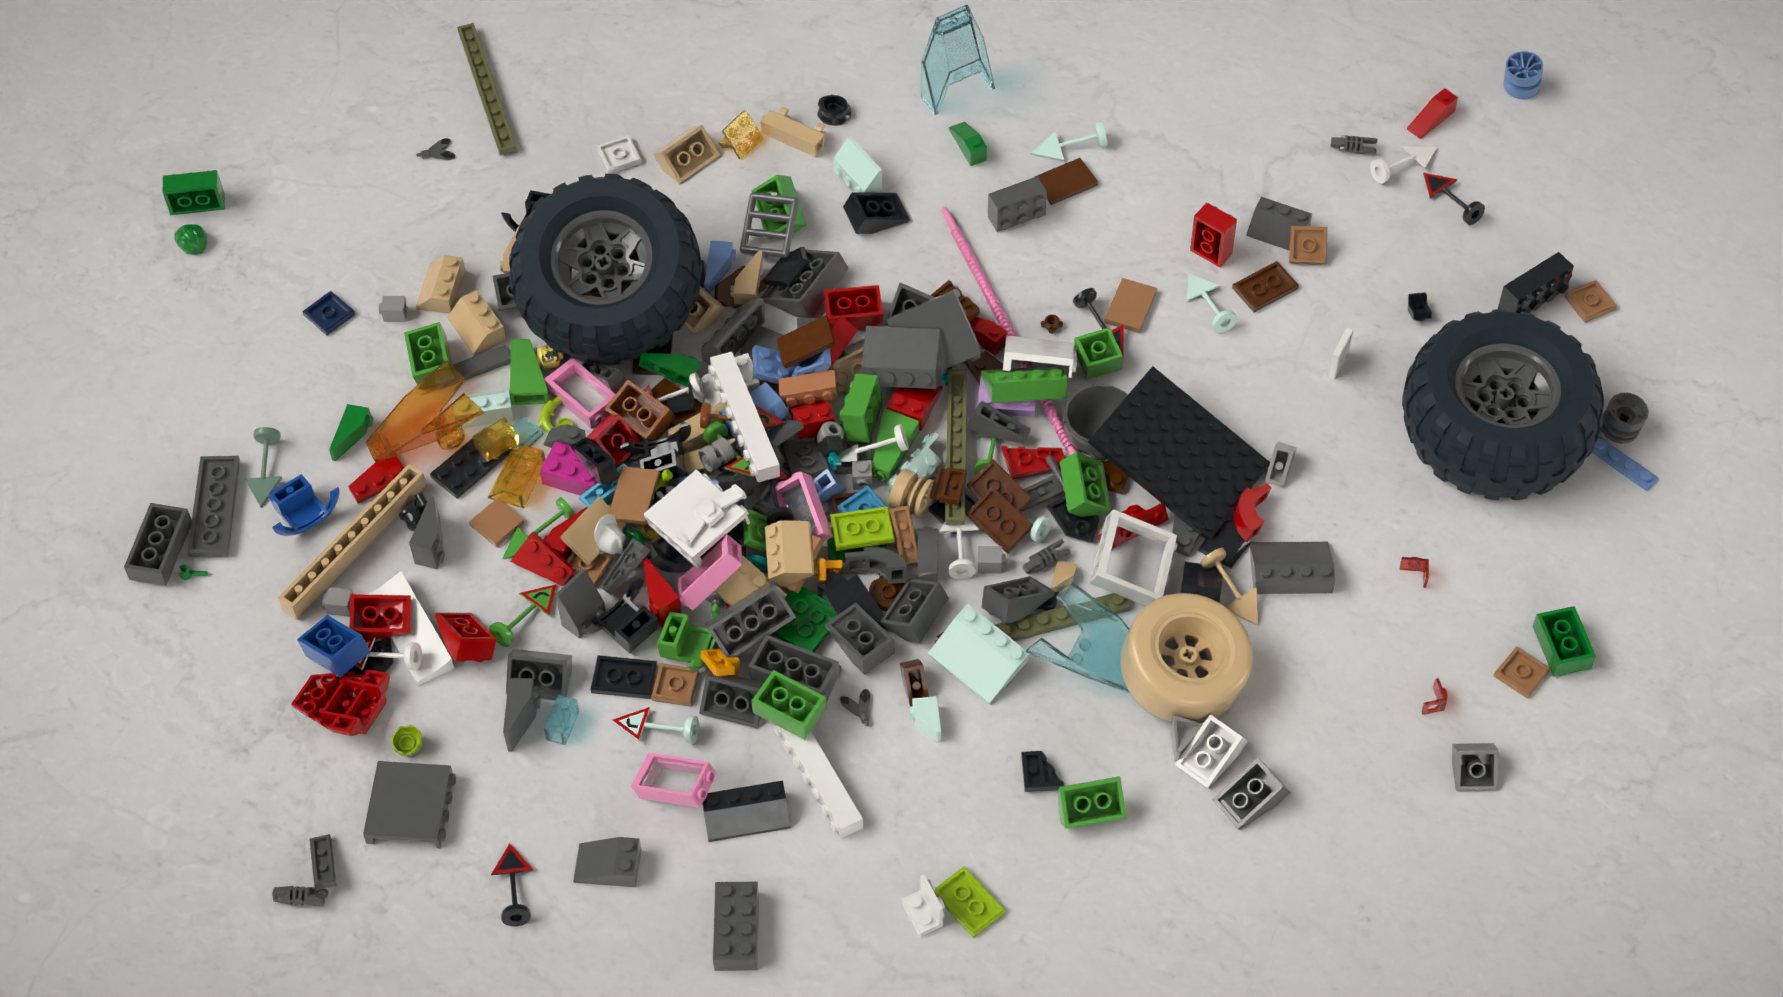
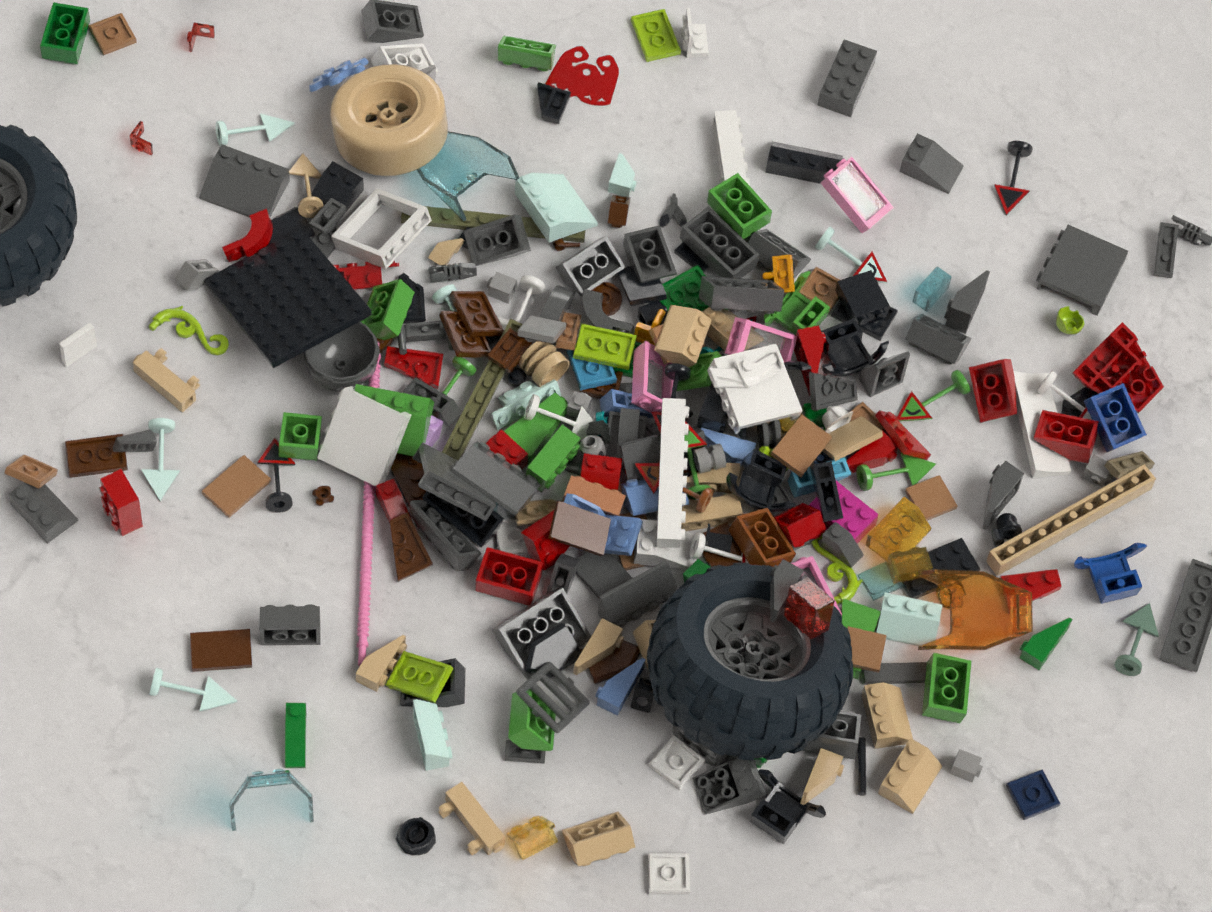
camera: 165 degrees left, 5 degrees up
(308, 609) = (1123, 465): none -> dark tan plate
(486, 284) = (862, 766): none -> black bar
(514, 353) = (867, 649): none -> medium nougat tile
(562, 274) = (809, 608): none -> clear red brick
(593, 302) = (782, 577): none -> dark grey slope
(629, 676) = (862, 298): none -> black brick
(802, 454) = (627, 427): none -> dark grey tile
(889, 206) = (419, 676): none -> lime tile
(927, 510) = (541, 329): none -> light grey tile
(930, 211) = (377, 665): none -> tan slope
(1021, 812) = (581, 85): none -> red piece
(1191, 553) = (328, 216): none -> dark grey slope
(1237, 298) = (136, 442): none -> dark grey slope
(1247, 361) = (164, 380): none -> tan brick
(1256, 692) = (334, 76): none -> medium blue plate
(1258, 413) = (186, 332): none -> lime plant
(1302, 639) = (272, 126): none -> light aqua piece

